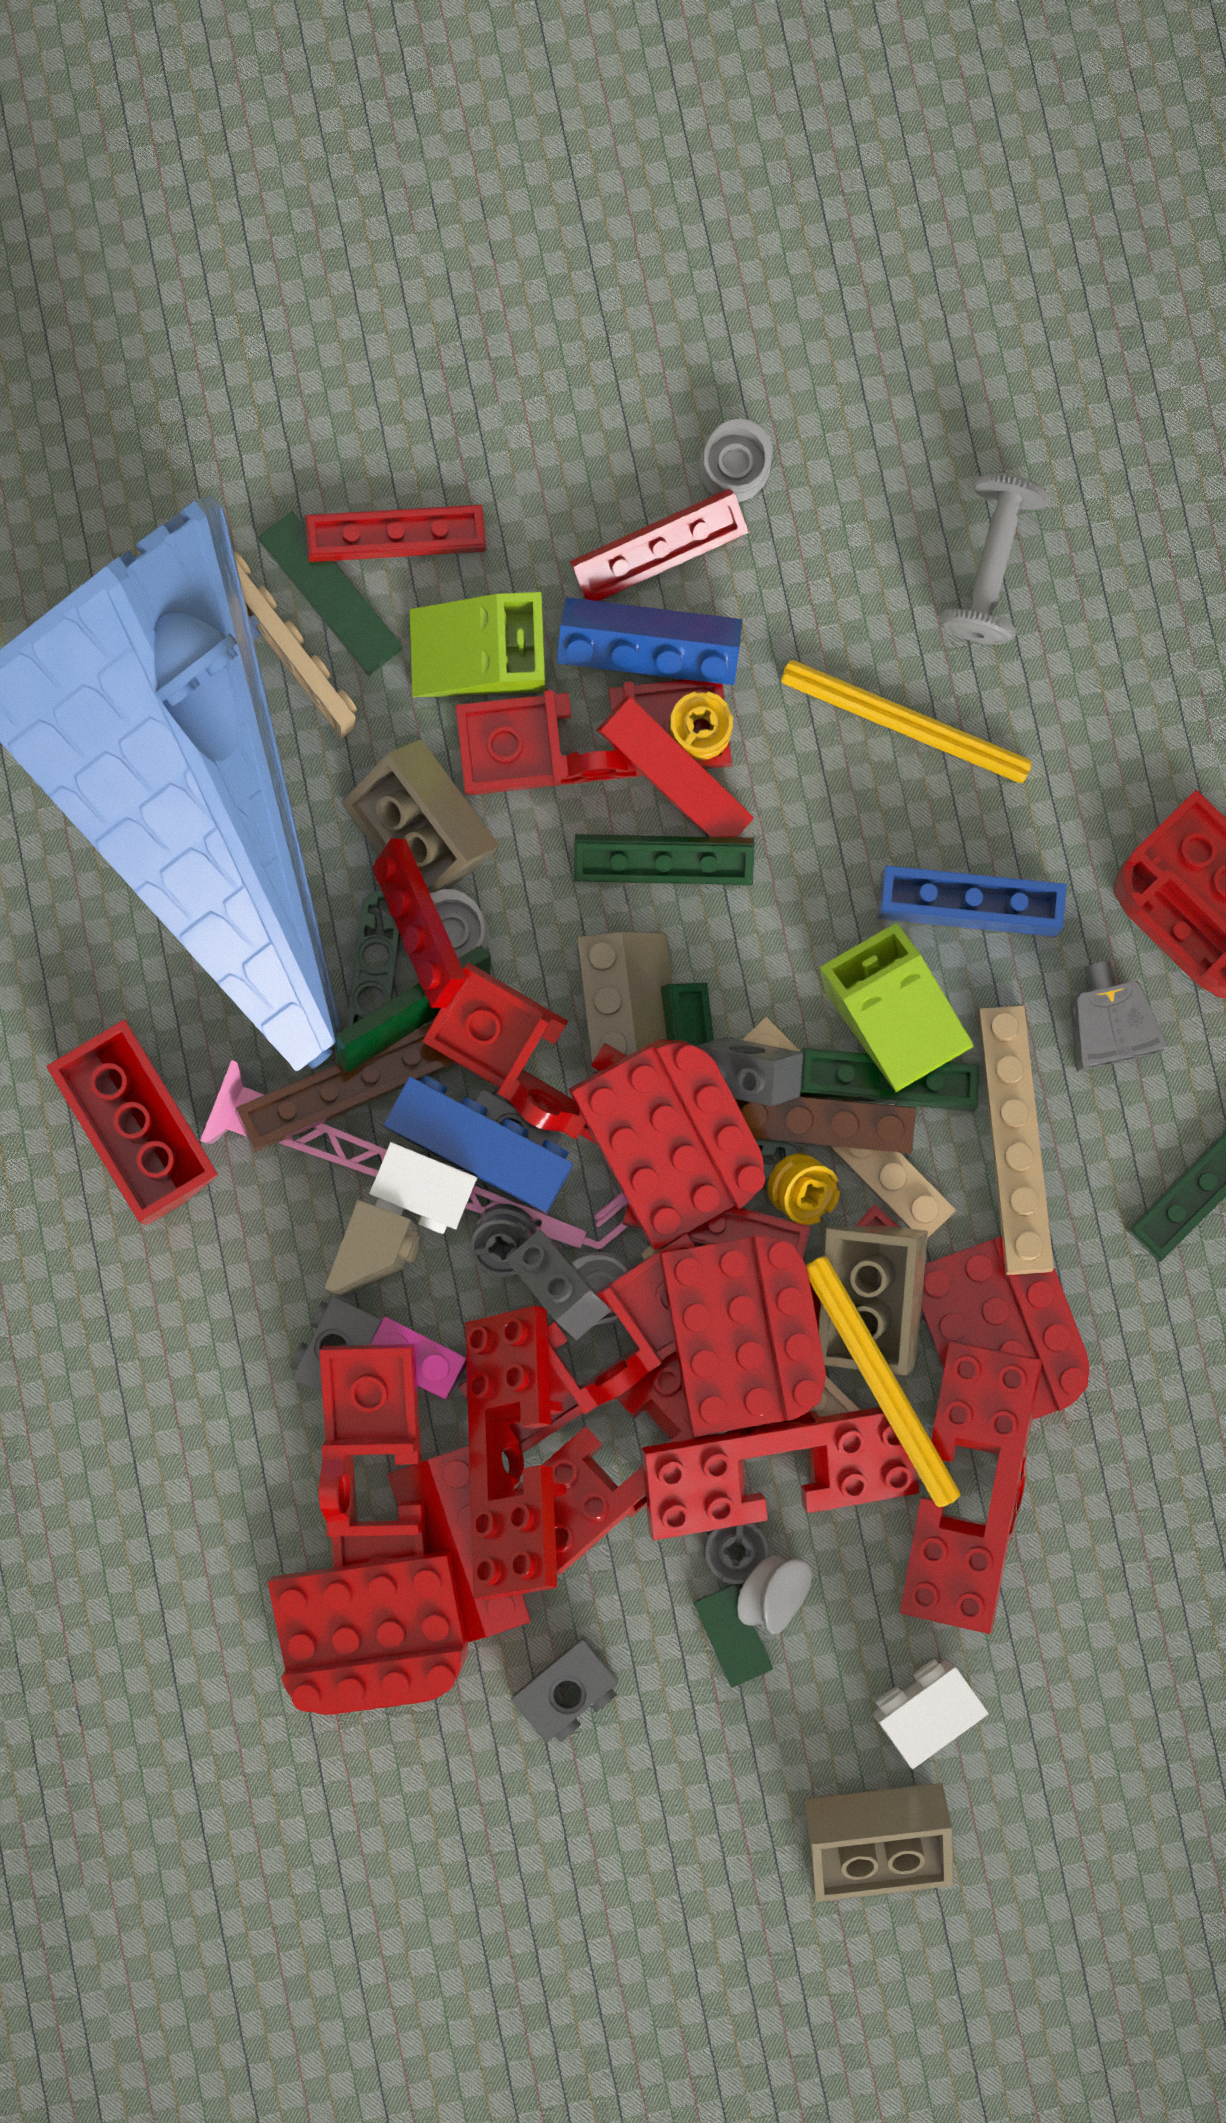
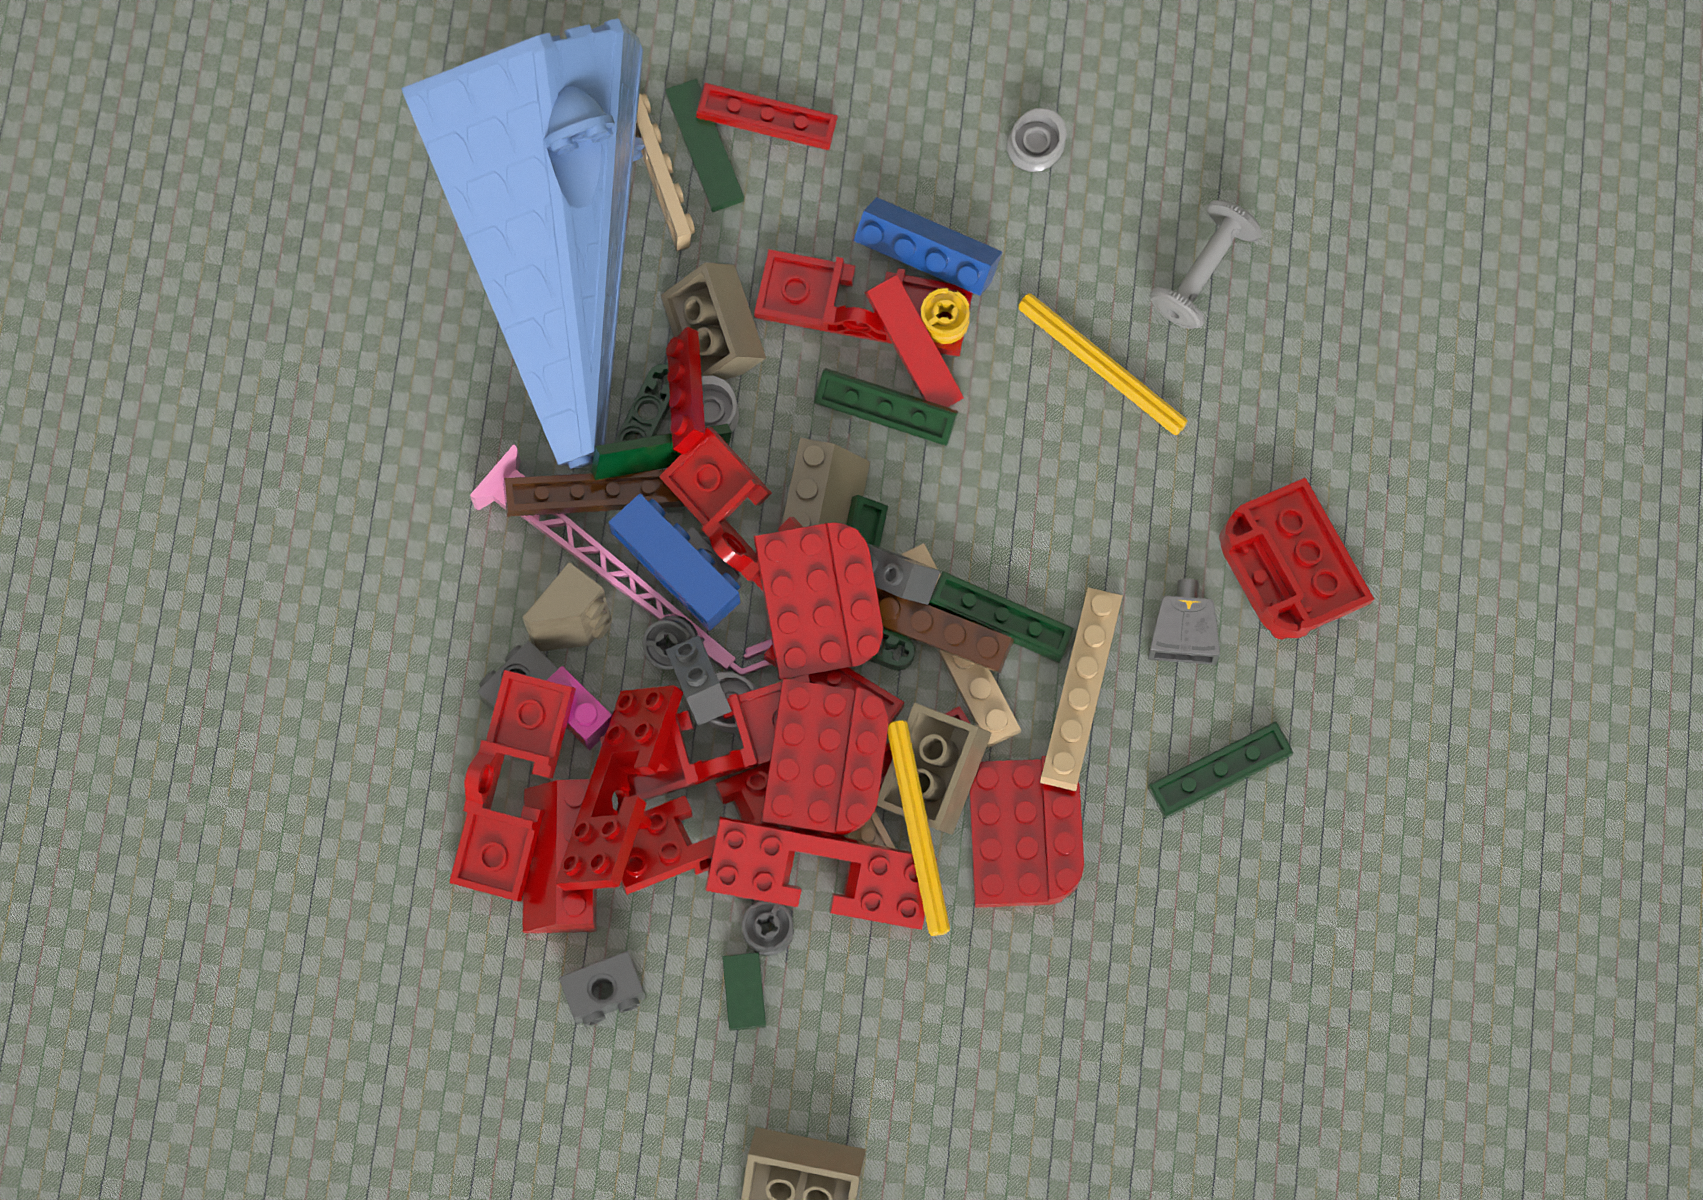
camera: 20 degrees right, 10 degrees down
(133, 1122) = (426, 471): red slope -> none
(370, 1633) = (470, 896): red plate -> none
(423, 1187) = (625, 577): white brick -> none
(478, 646) = (801, 213): lime slope -> none
(659, 546) = (959, 183): plate -> none
(774, 1593) = (785, 965): light grey piece -> none
(803, 1188) = (908, 674): yellow wheel -> none
(894, 1007) = (1021, 560): lime slope -> none
(928, 1712) = (872, 1089): white brick -> none
(957, 1560) = (991, 878): red plate -> none
(971, 901) = (1106, 504): blue brick -> none

